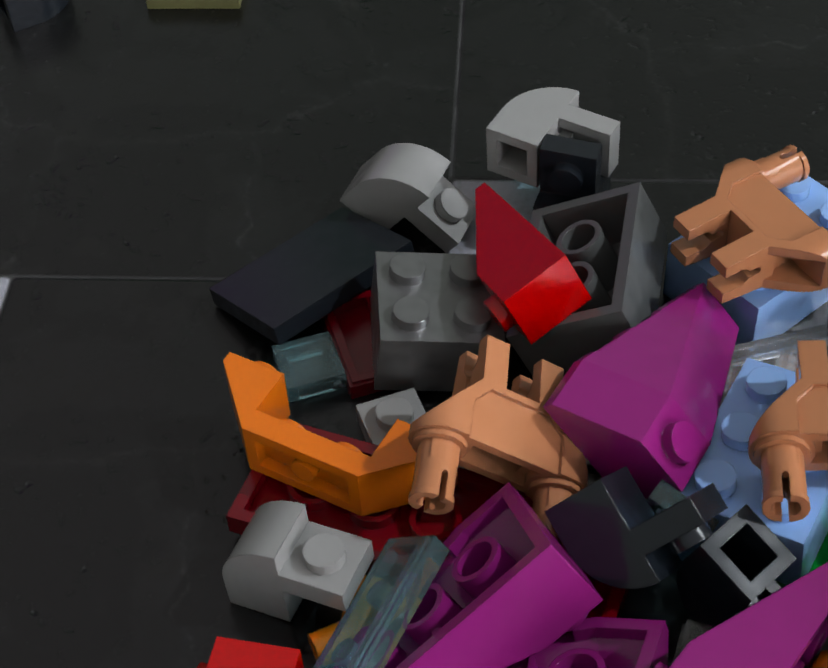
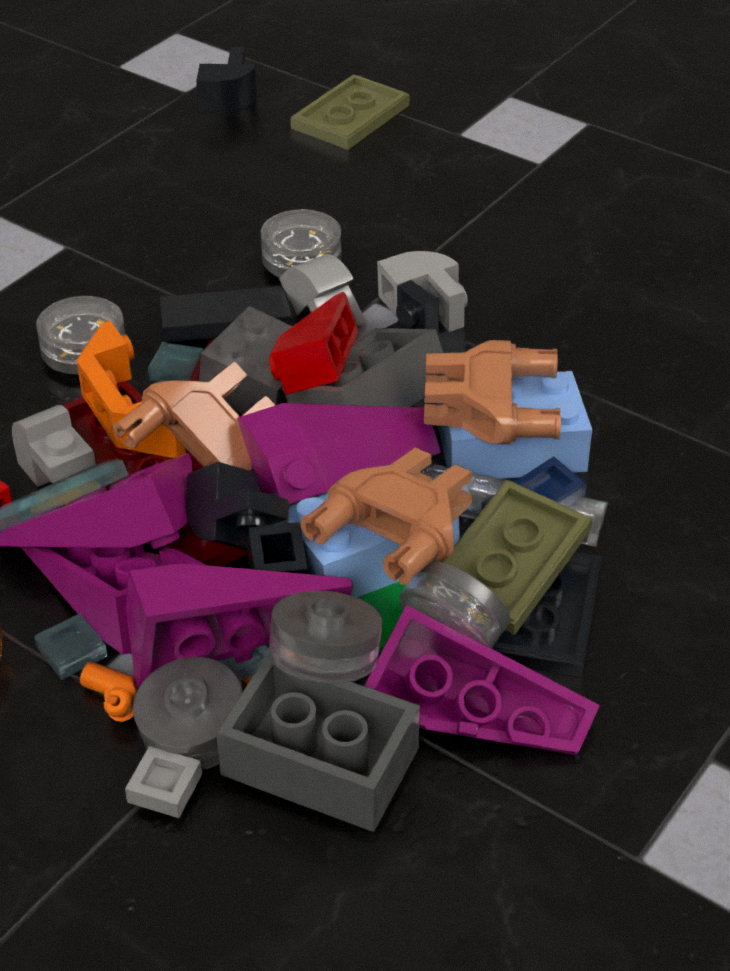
camera: 30 degrees right, 5 degrees down
(167, 386) = (68, 327): none -> clear piece
(319, 145) = (297, 238): none -> clear piece

